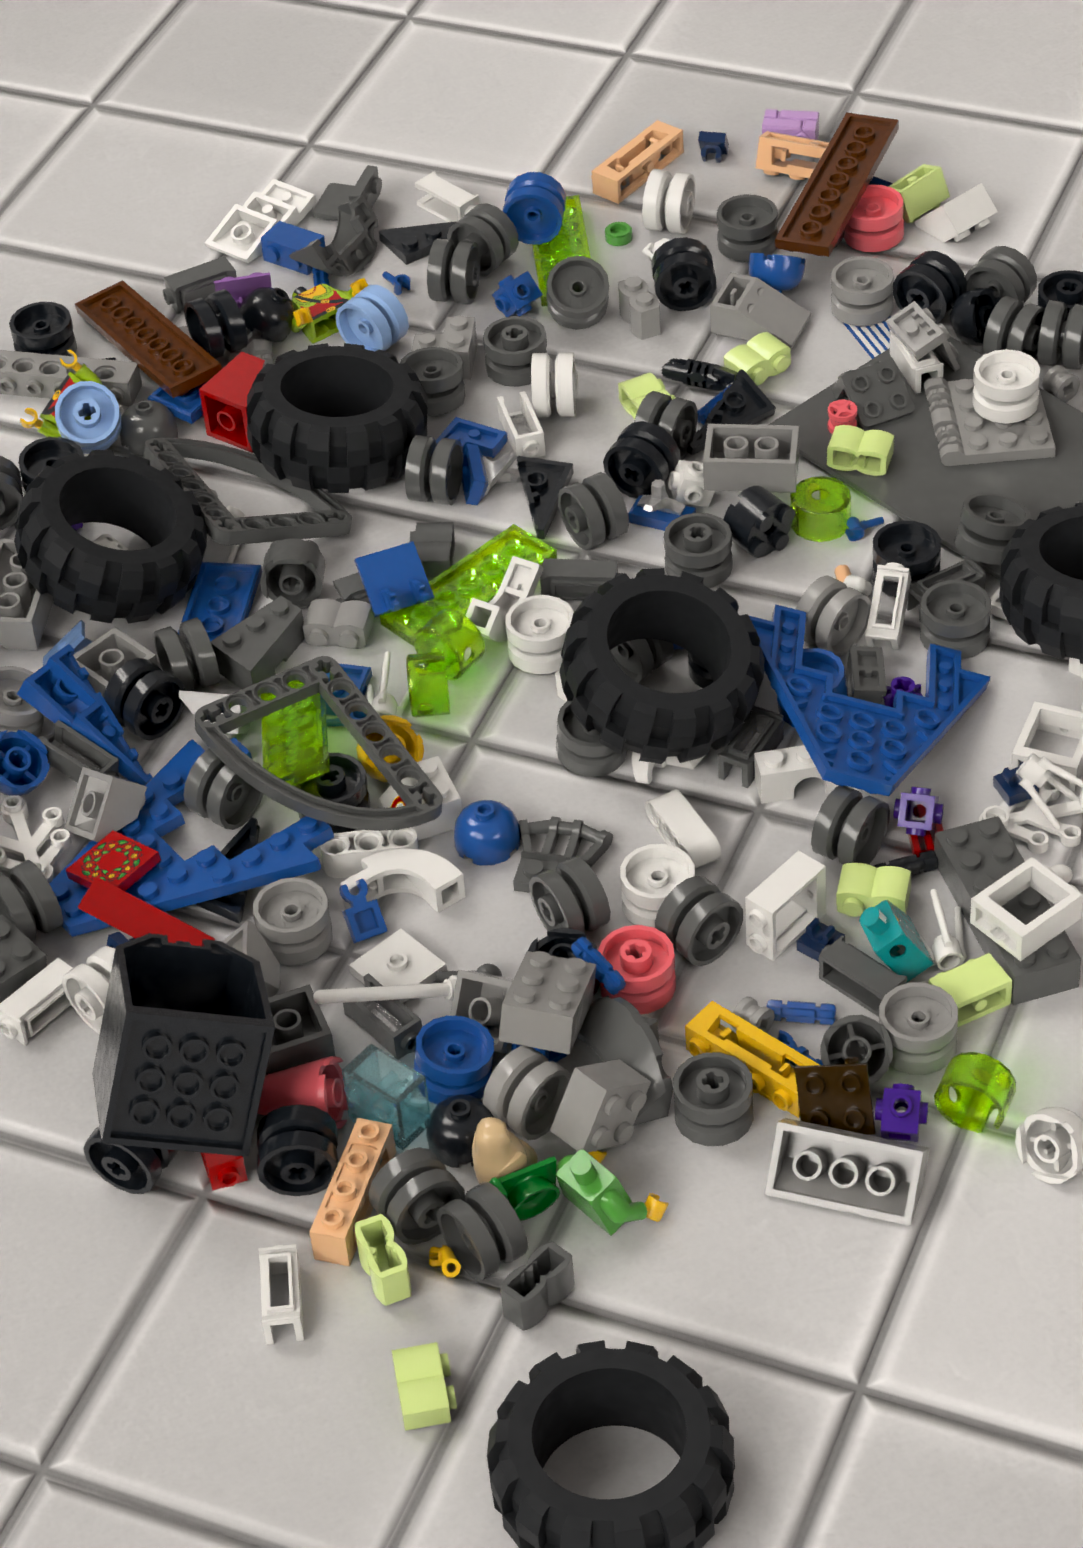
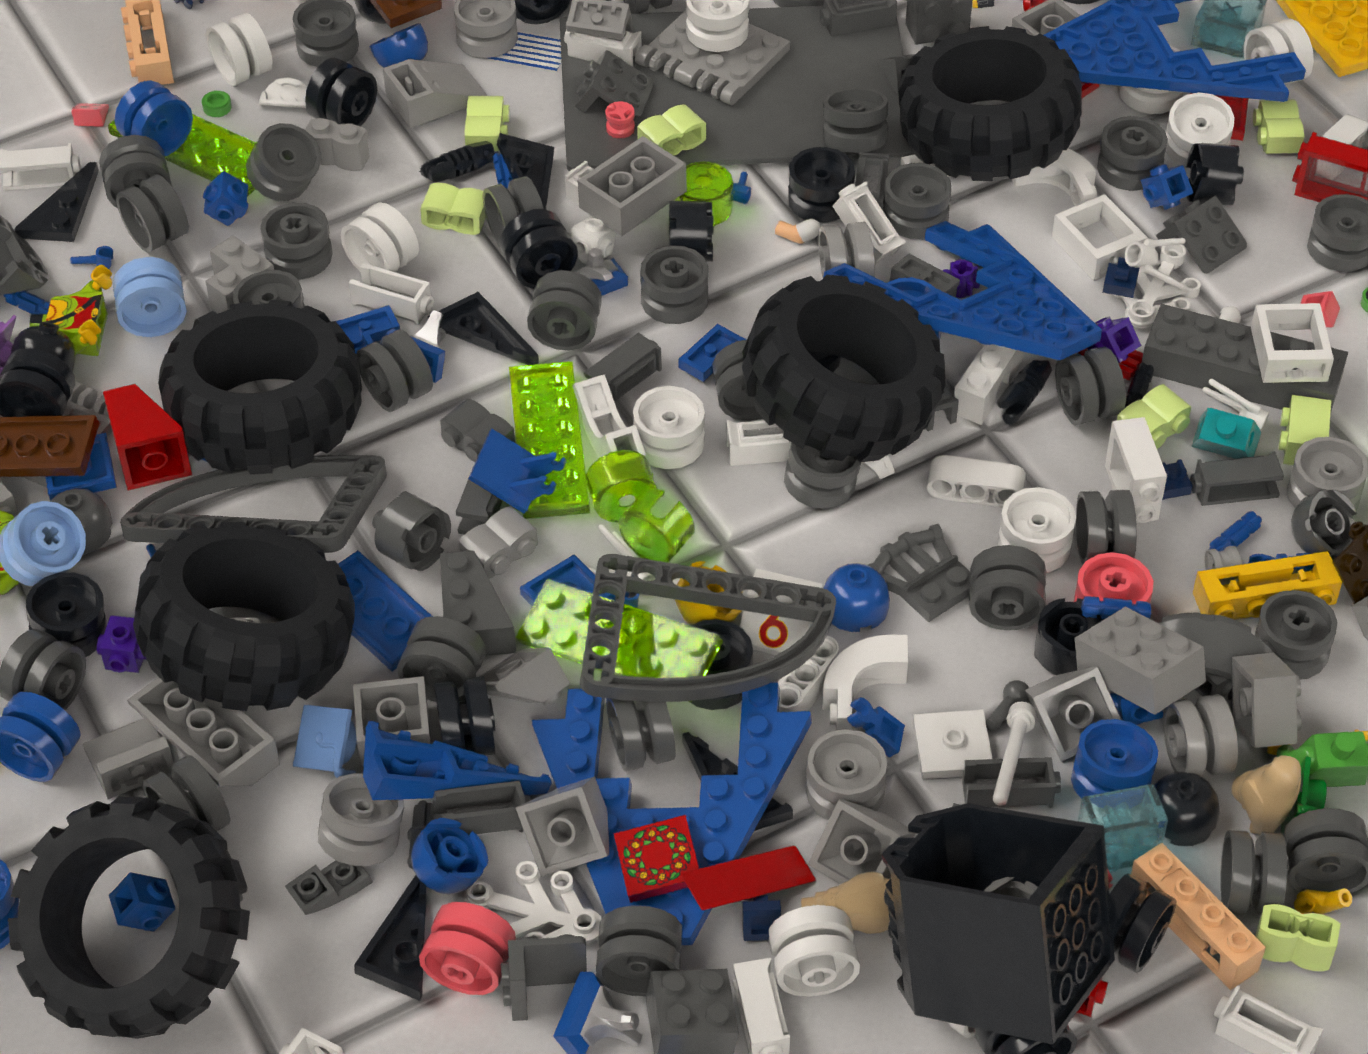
camera: 55 degrees left, 5 degrees up
(811, 797) = (1024, 390): none -> black hinge

